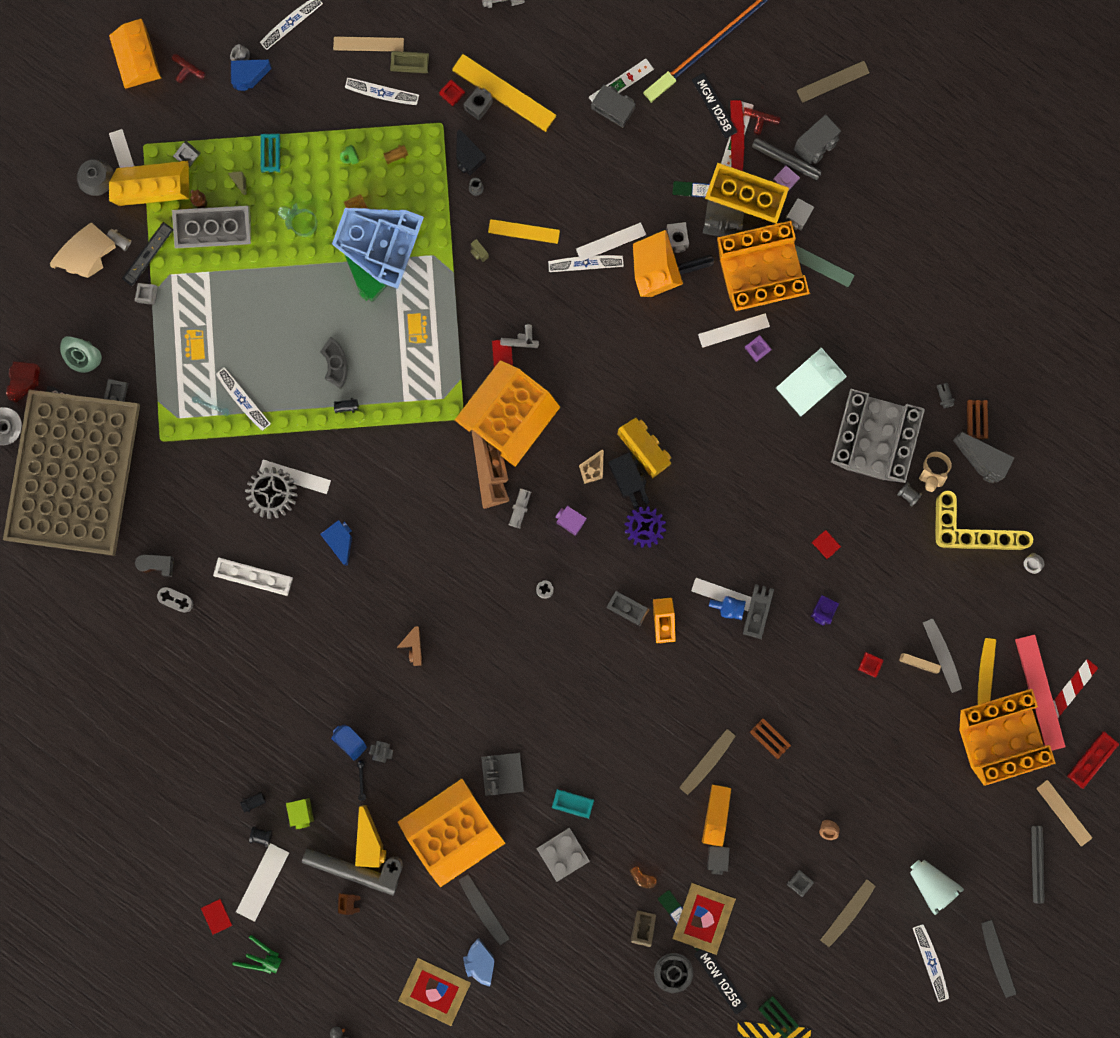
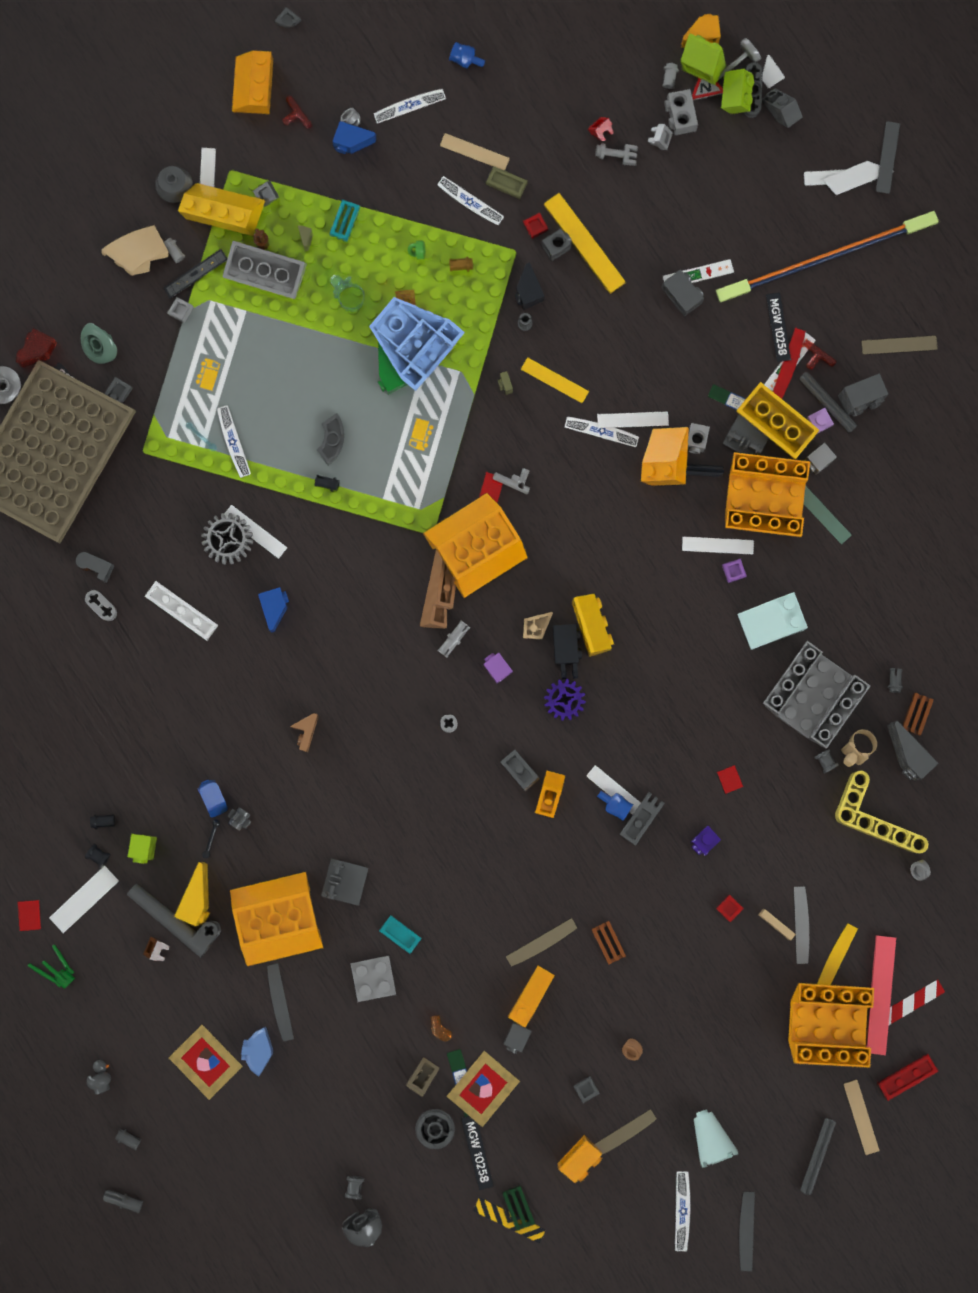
camera: 20 degrees right, 0 degrees up
(819, 950) = (580, 1159): none -> light orange slope

